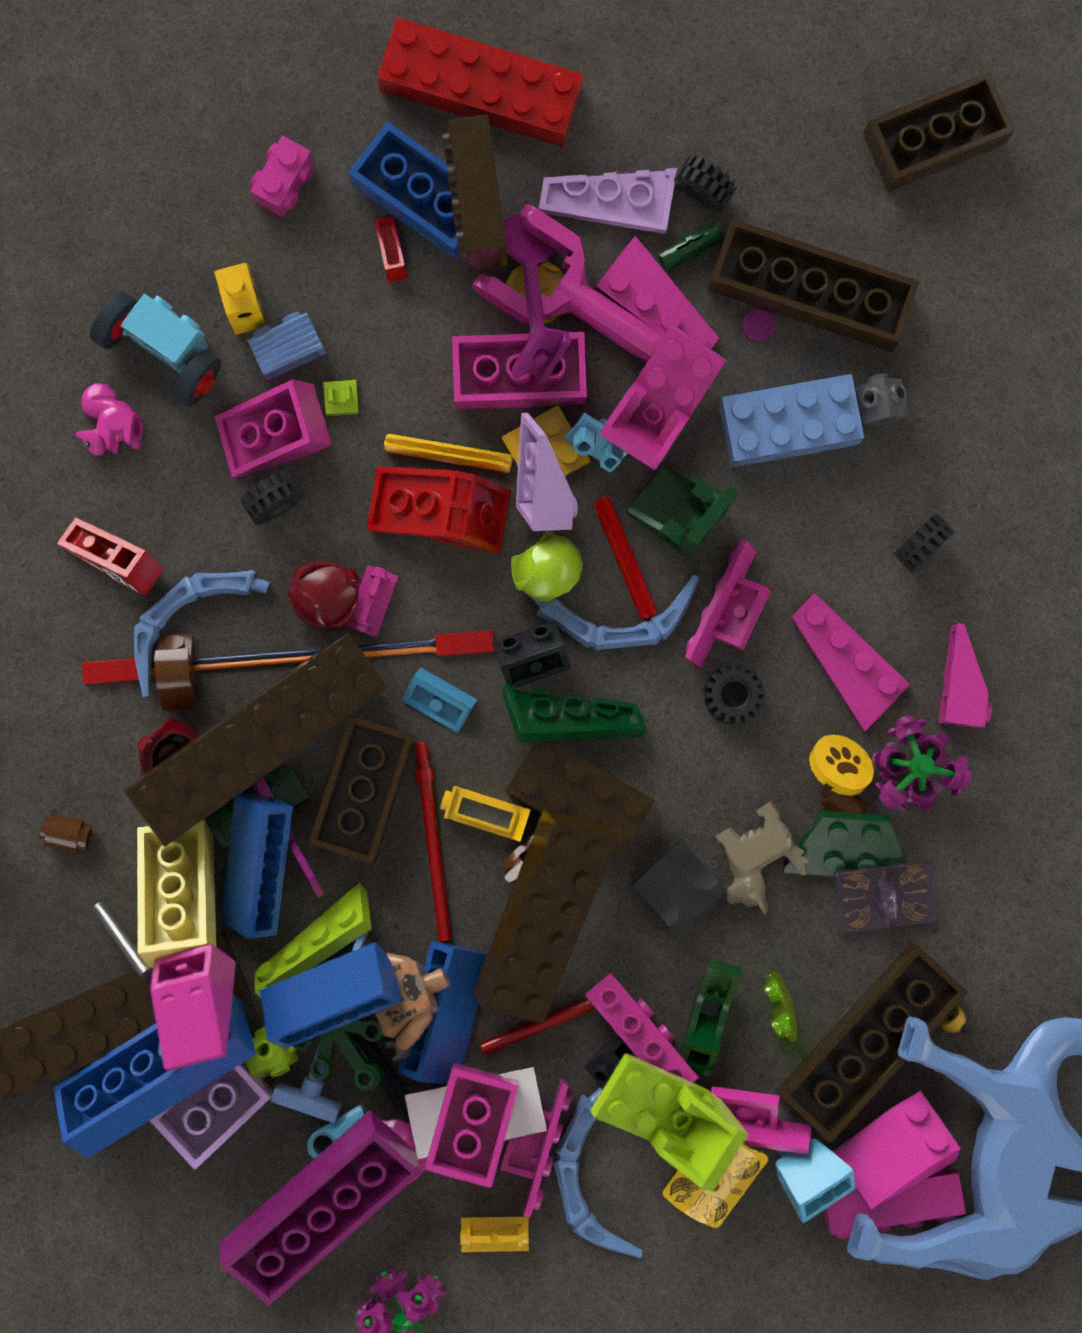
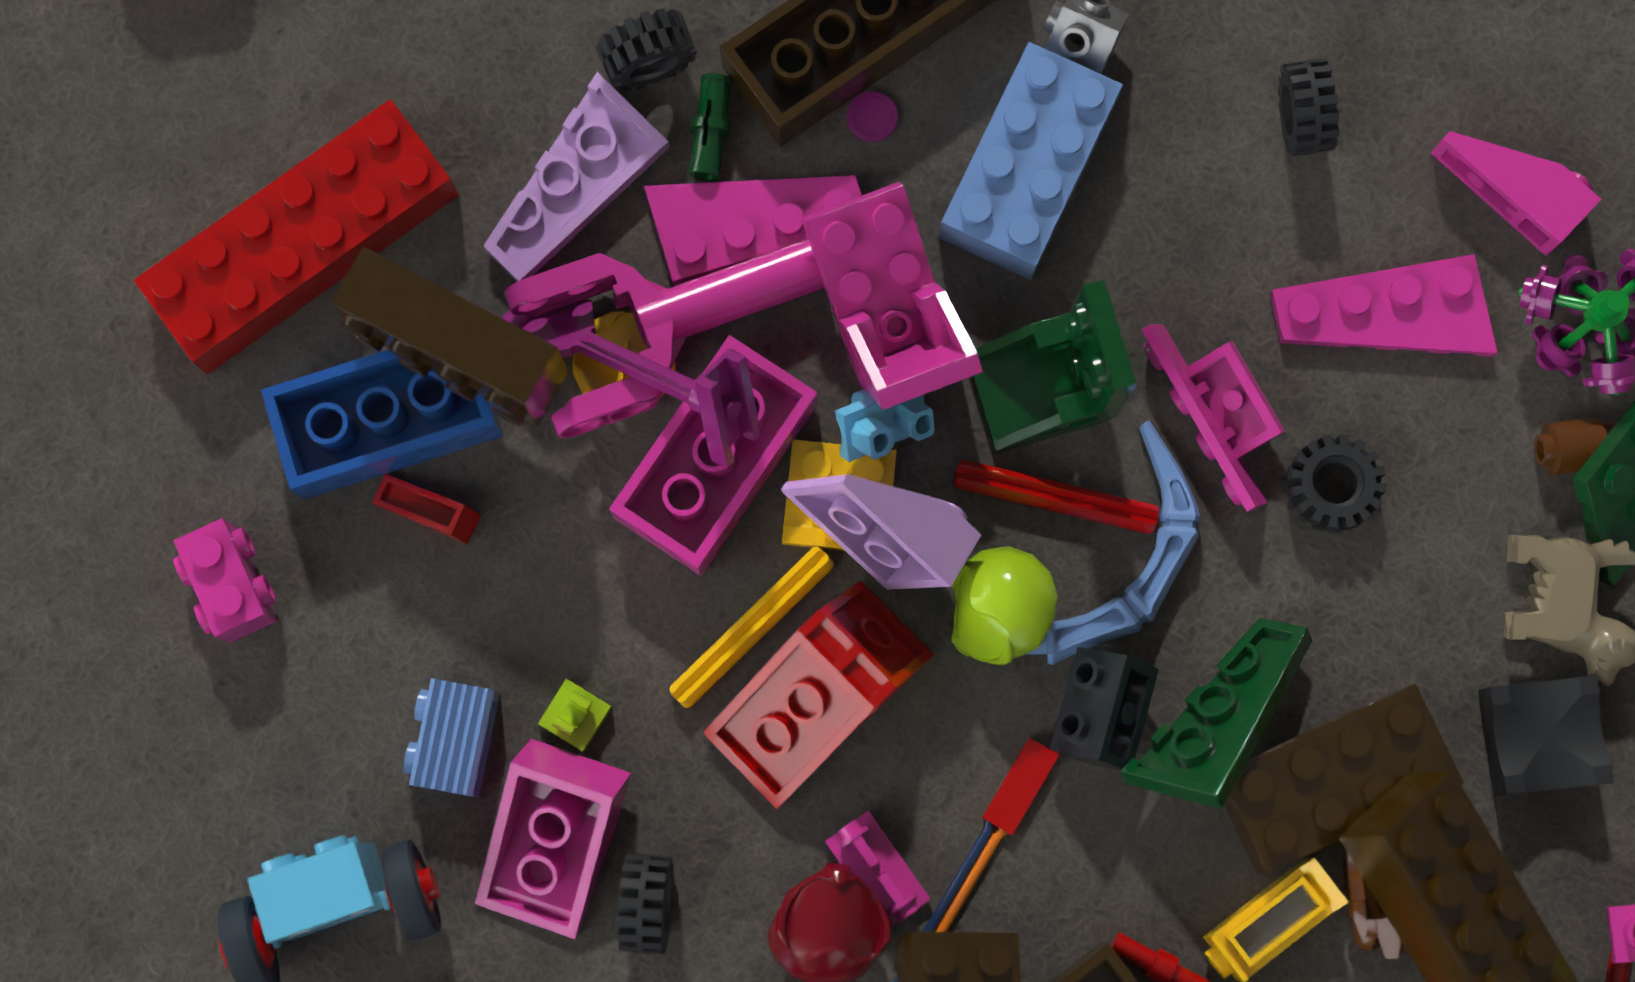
camera: 50 degrees left, 5 degrees down
(240, 297) = (346, 753): yellow torso -> none
(439, 700) = (1073, 875): dark azure slope -> none
(841, 764) = (1526, 412): yellow tile -> none

